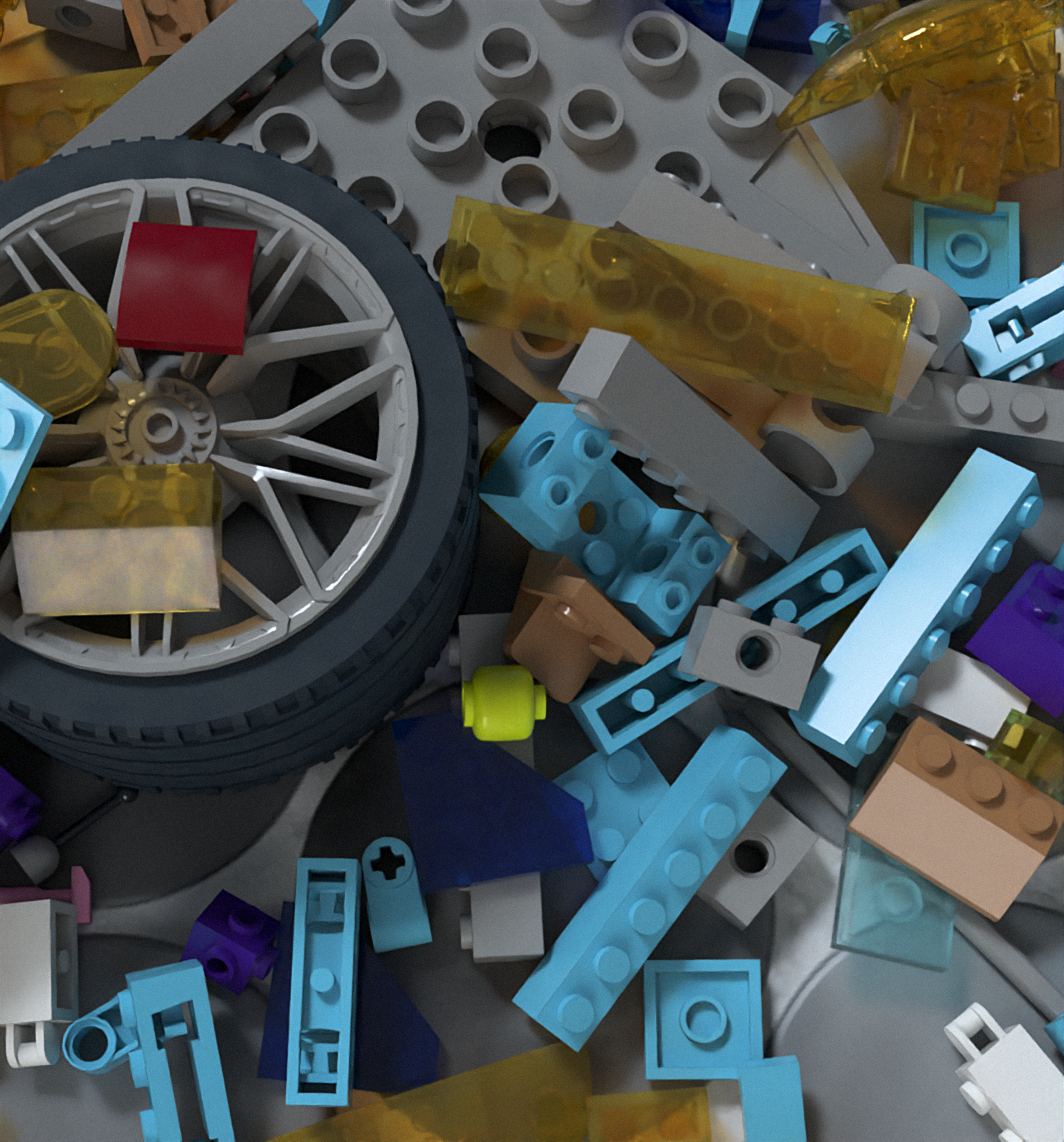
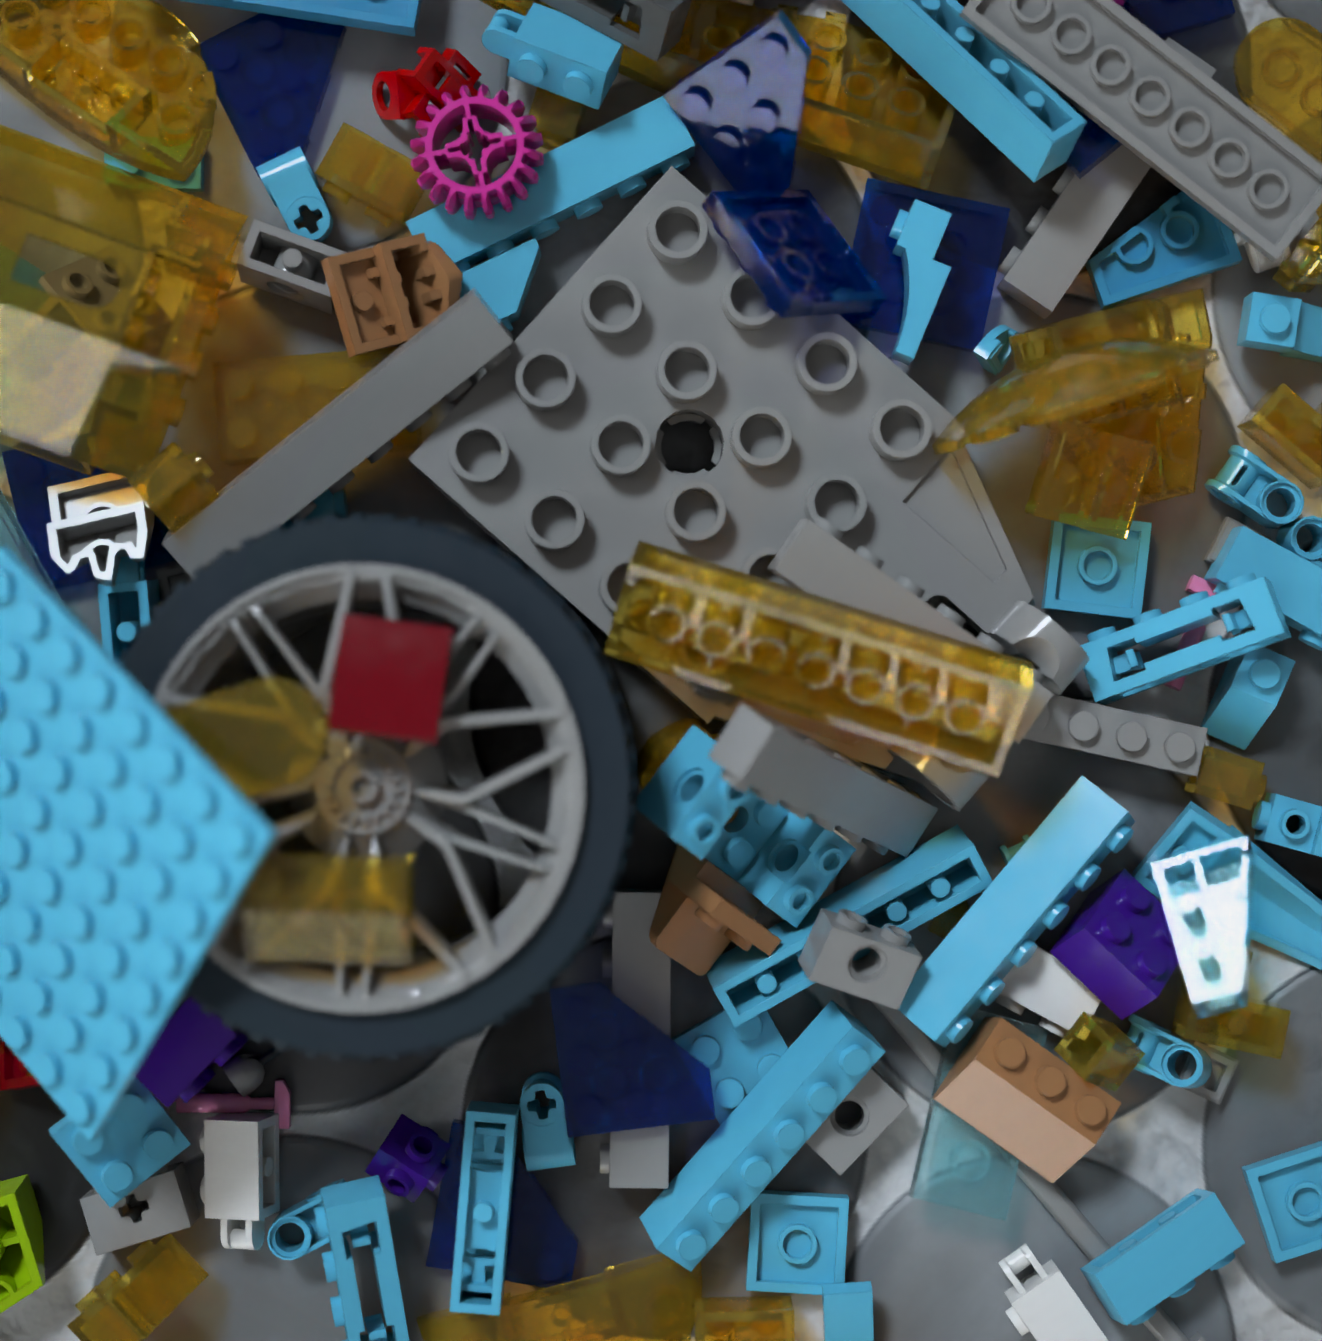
camera: 10 degrees right, 15 degrees up
(502, 702) = (645, 983): neon yellow head -> none

